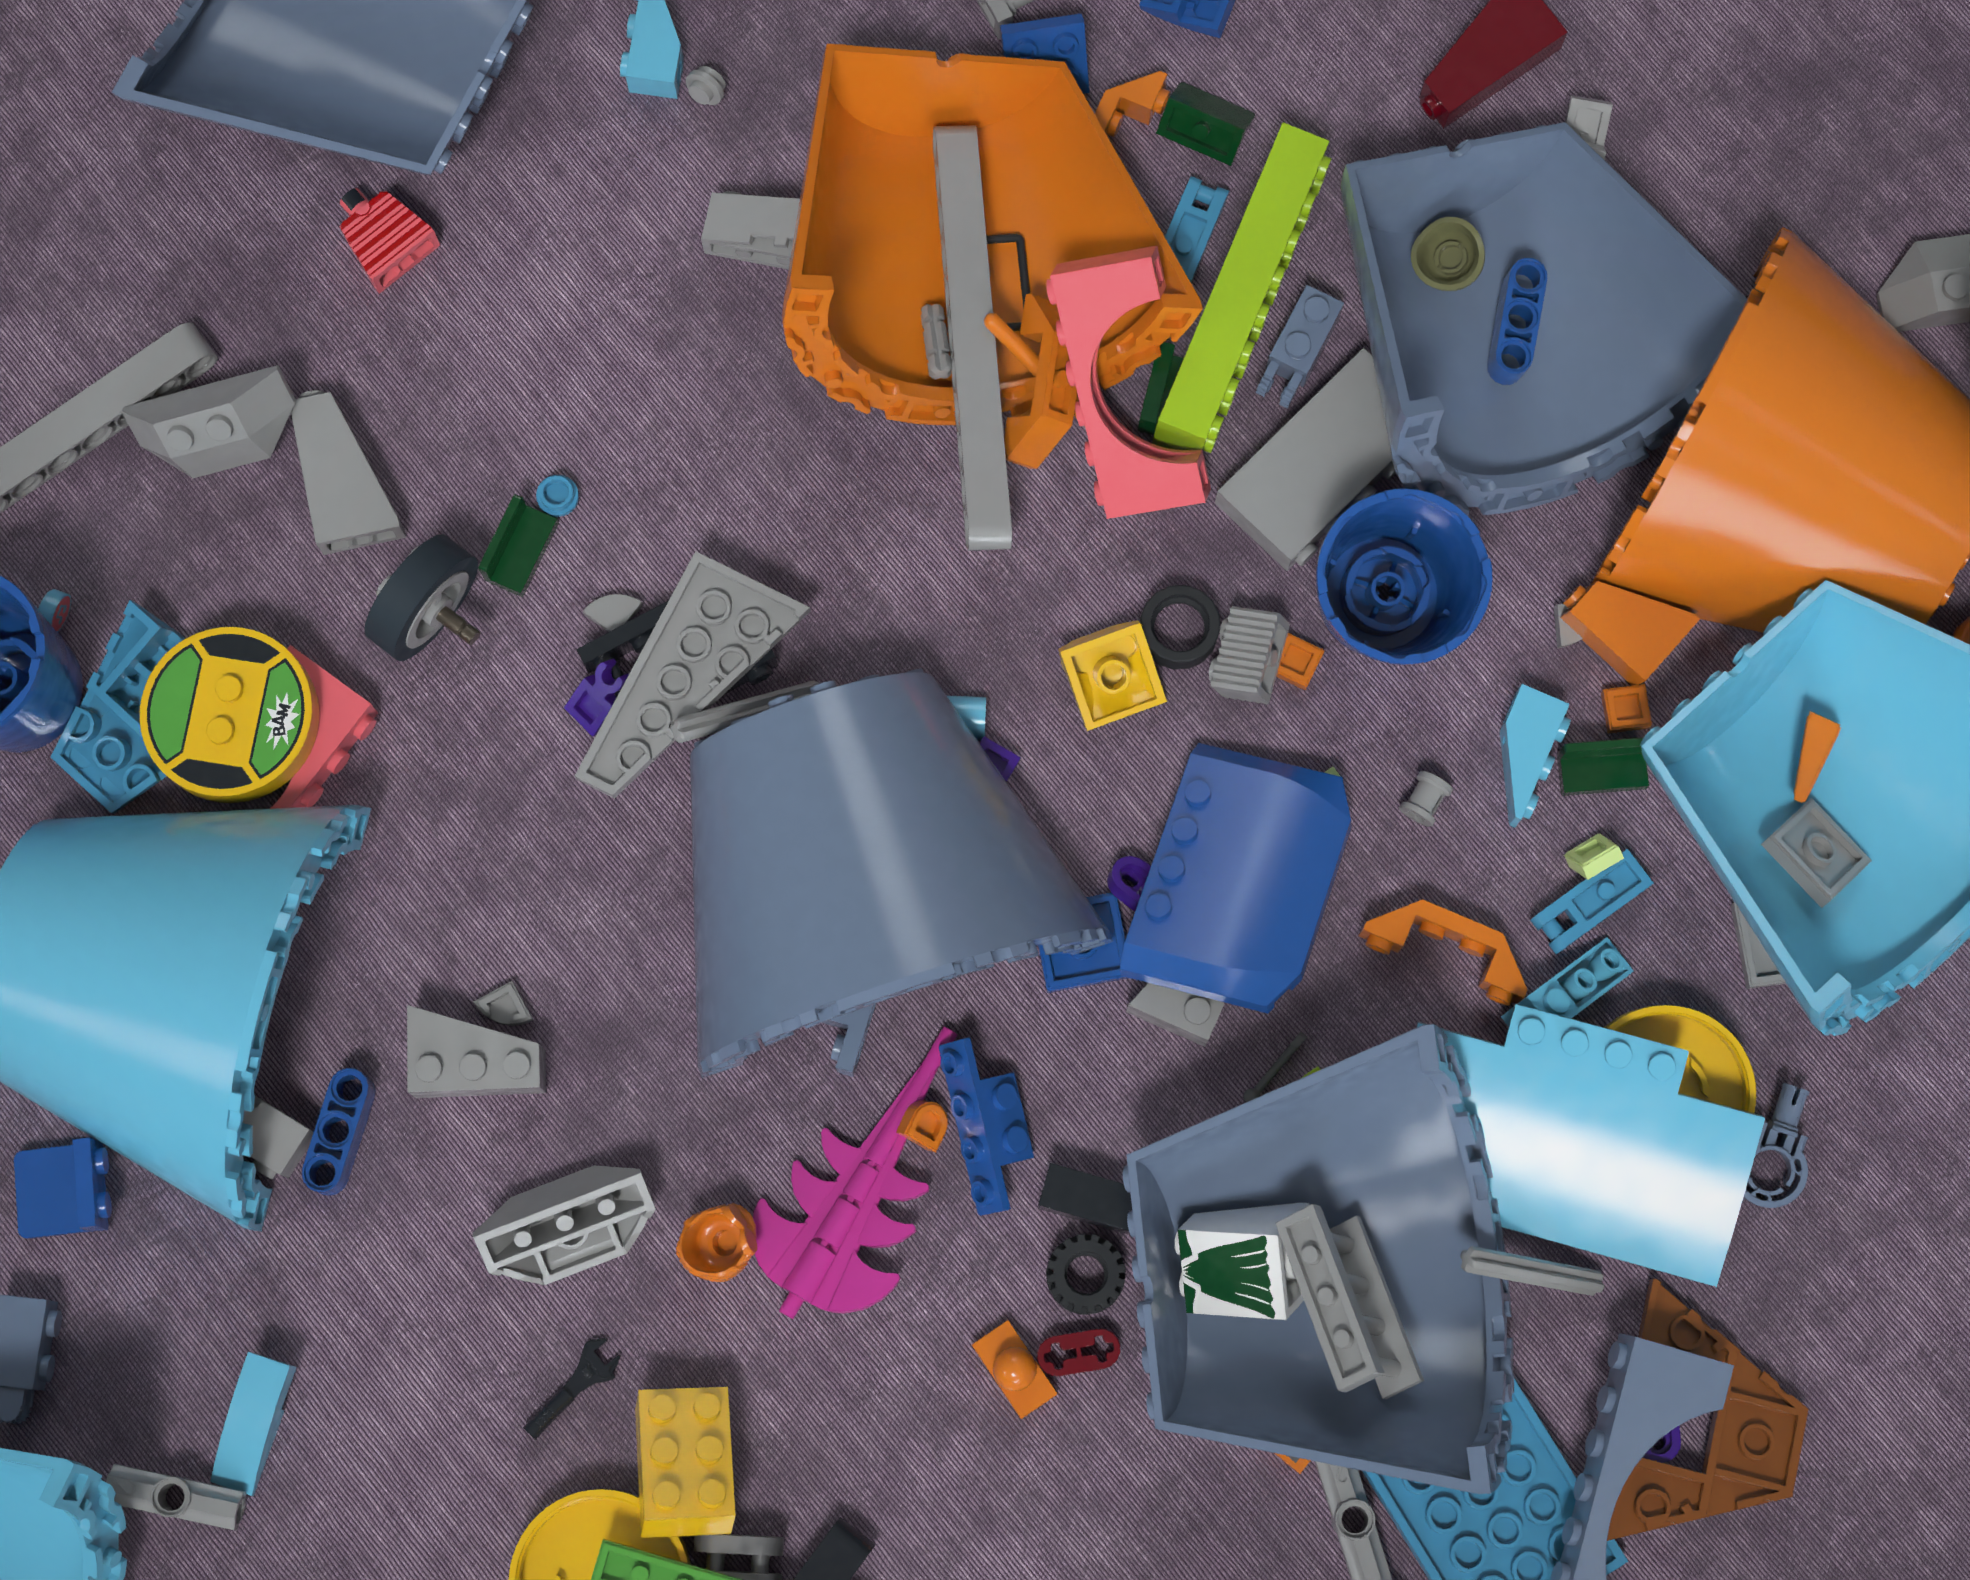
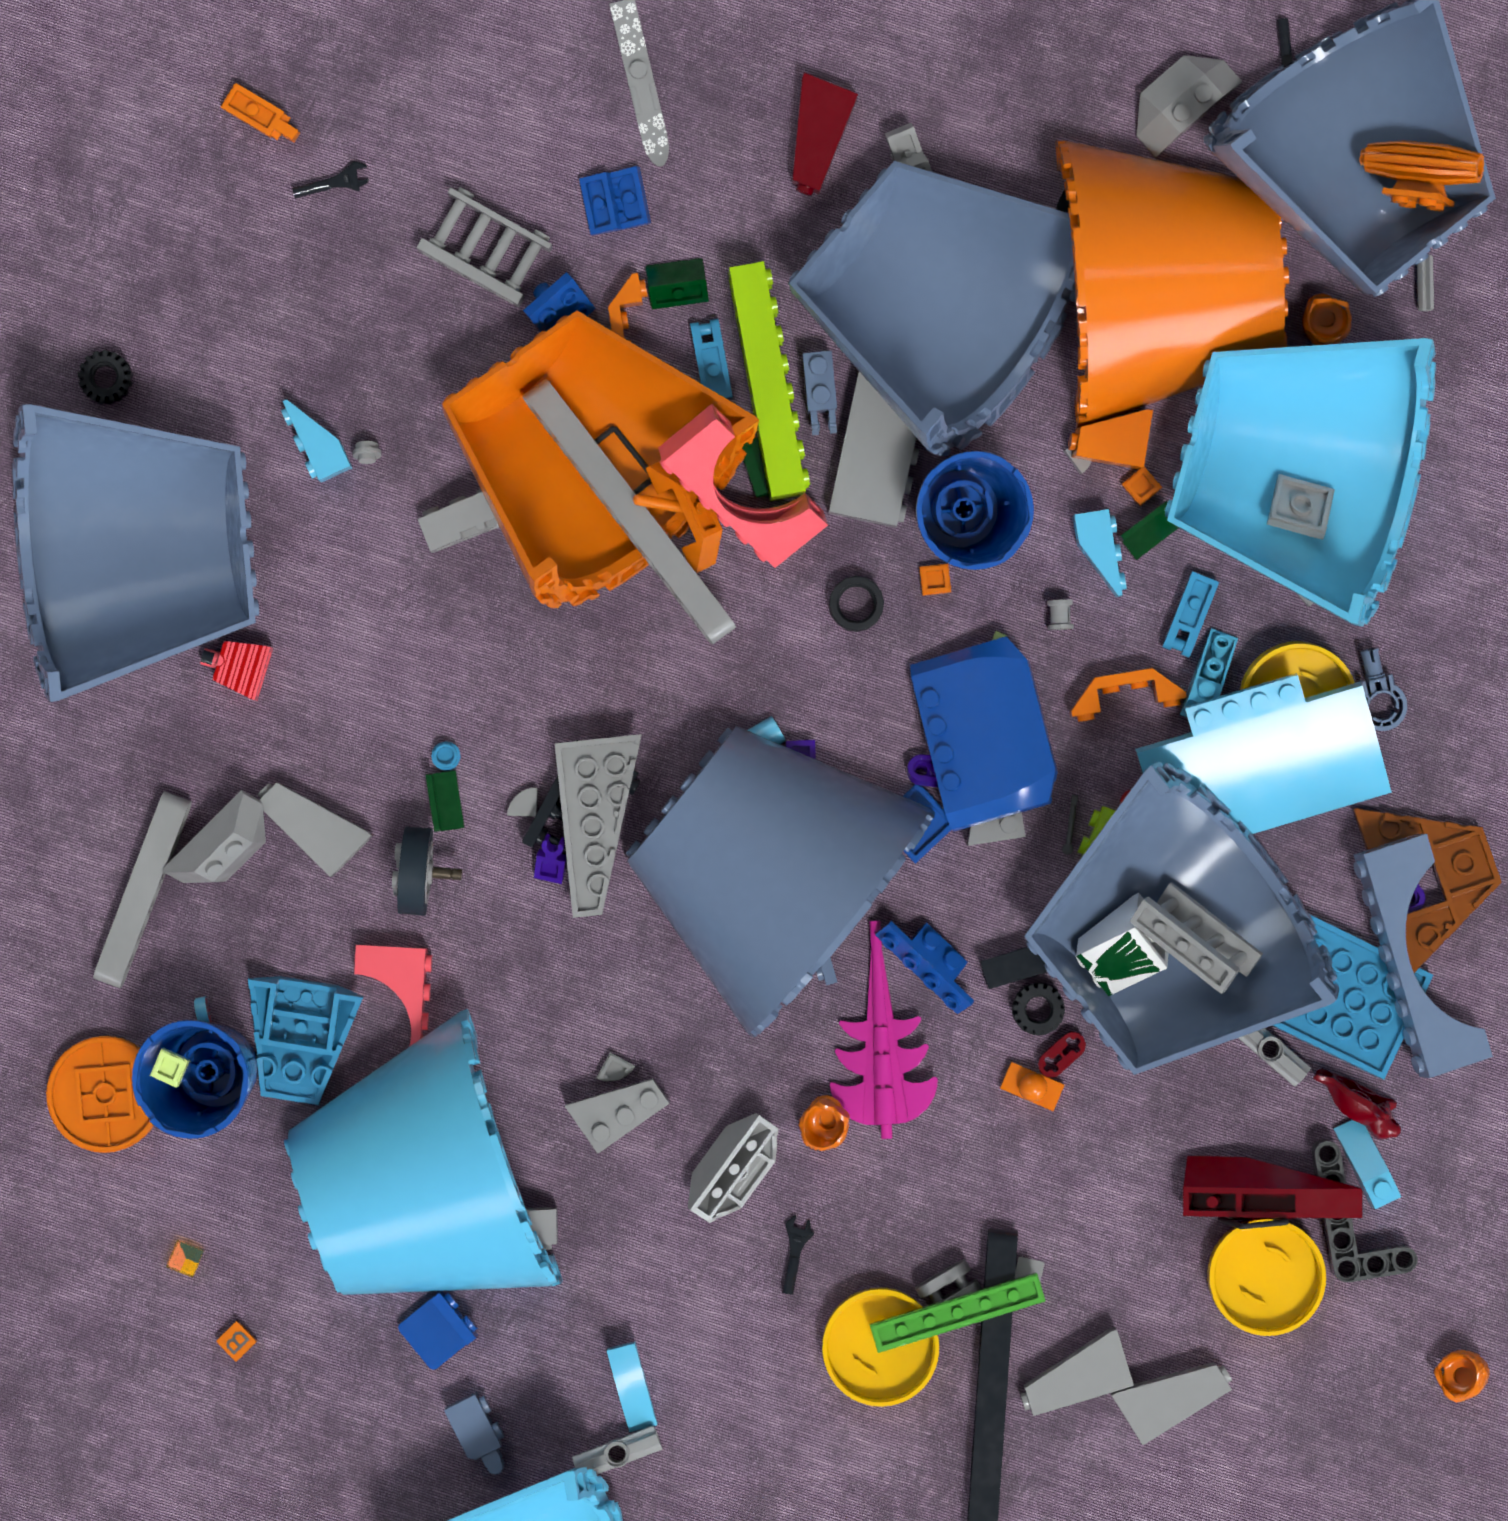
camera: 35 degrees left, 10 degrees up
(229, 714) = (351, 1008): brick -> none
(333, 1110) = (568, 1213): blue beam -> none
(684, 1462) = (886, 1254): yellow brick -> none
(718, 718) = (644, 815): light grey axle -> none
(924, 1124) = (895, 983): orange tile -> none
(936, 341) = (608, 526): light grey axle -> none
(1112, 674) = (835, 657): yellow slope -> none
(1249, 654) = (907, 595): light grey brick -> none
(1448, 254) = (874, 283): olive helmet -> none
(1527, 305) = (941, 282): blue beam -> none
(1531, 1271) = (1285, 851): light grey axle -> none
(1593, 856) = (1175, 587): yellowish green tile -> none
(1817, 743) = (1263, 442): orange slope -> none

